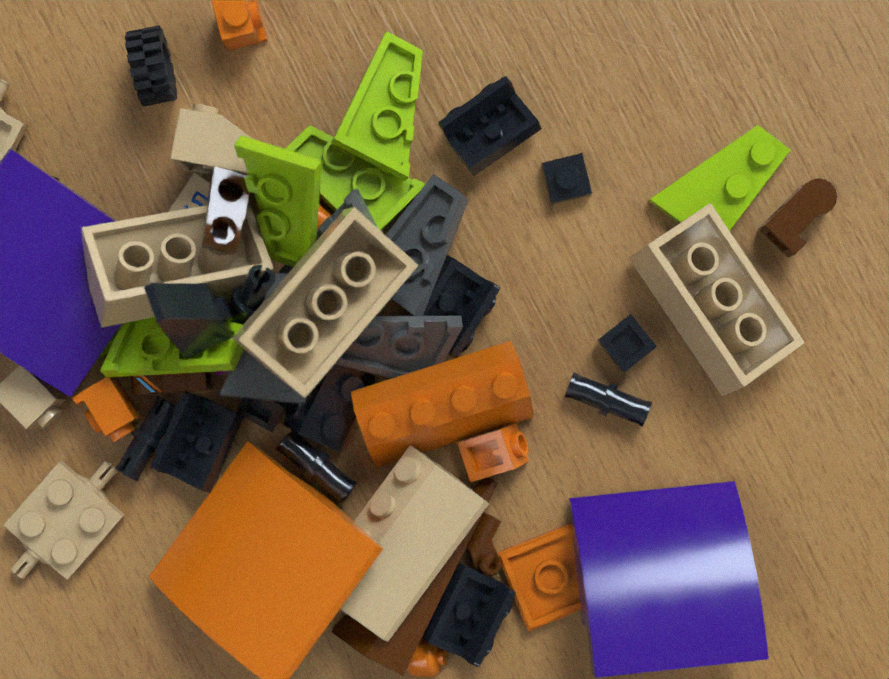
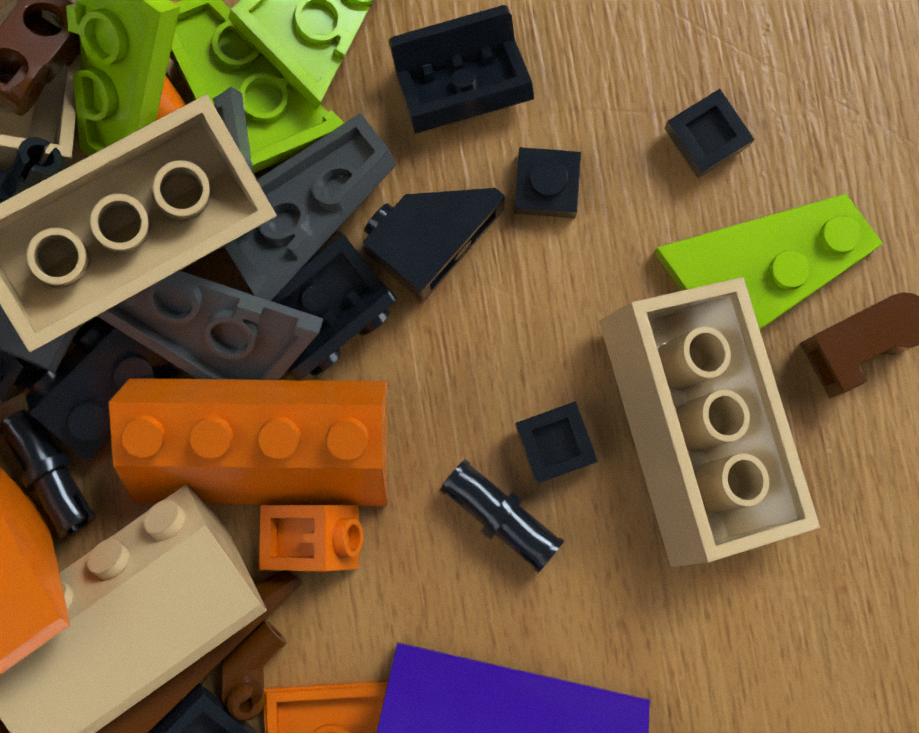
camera: 20 degrees right, 5 degrees down
(504, 239) = (429, 234): none -> black slope
(659, 114) = (709, 133): none -> black plate

